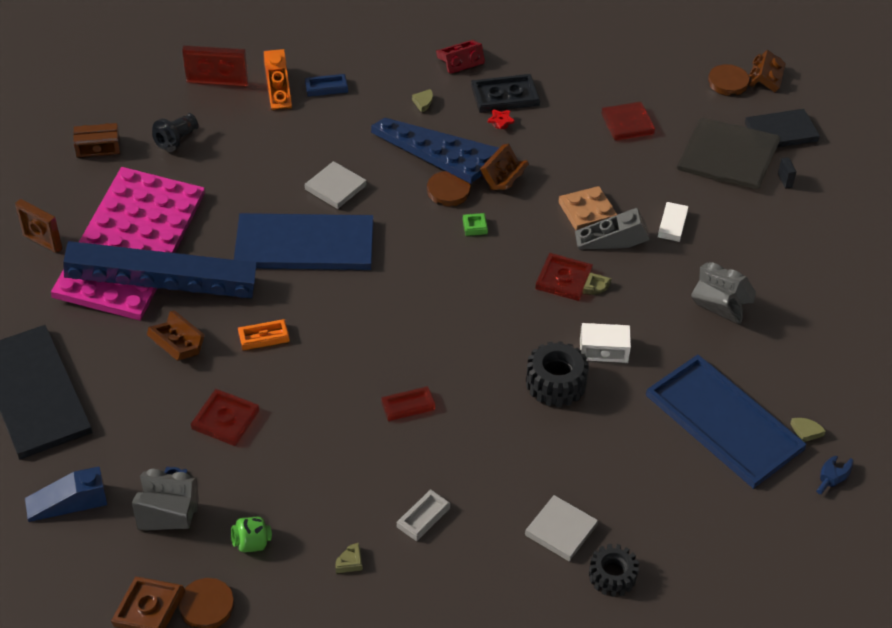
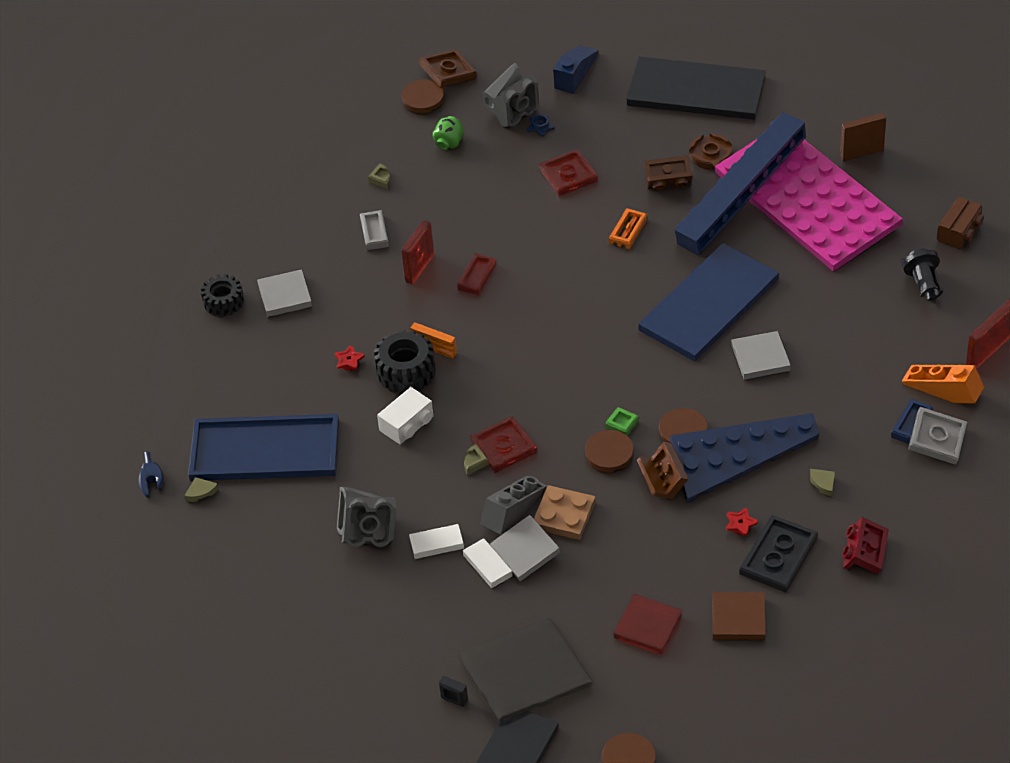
camera: 135 degrees right, 0 degrees up
(117, 333) = (710, 150): none -> reddish brown tile
(330, 64) = (937, 435): none -> light grey tile
(435, 437) = (417, 252): none -> clear red tile
(509, 215) = (609, 451): none -> reddish brown tile
(513, 375) = (442, 343): none -> orange tile
(574, 85) = (738, 615): none -> reddish brown tile
(585, 430) = (349, 364): none -> red plate
(649, 203) = (525, 548): none -> light grey tile
(685, 257) = (436, 541): none -> white tile

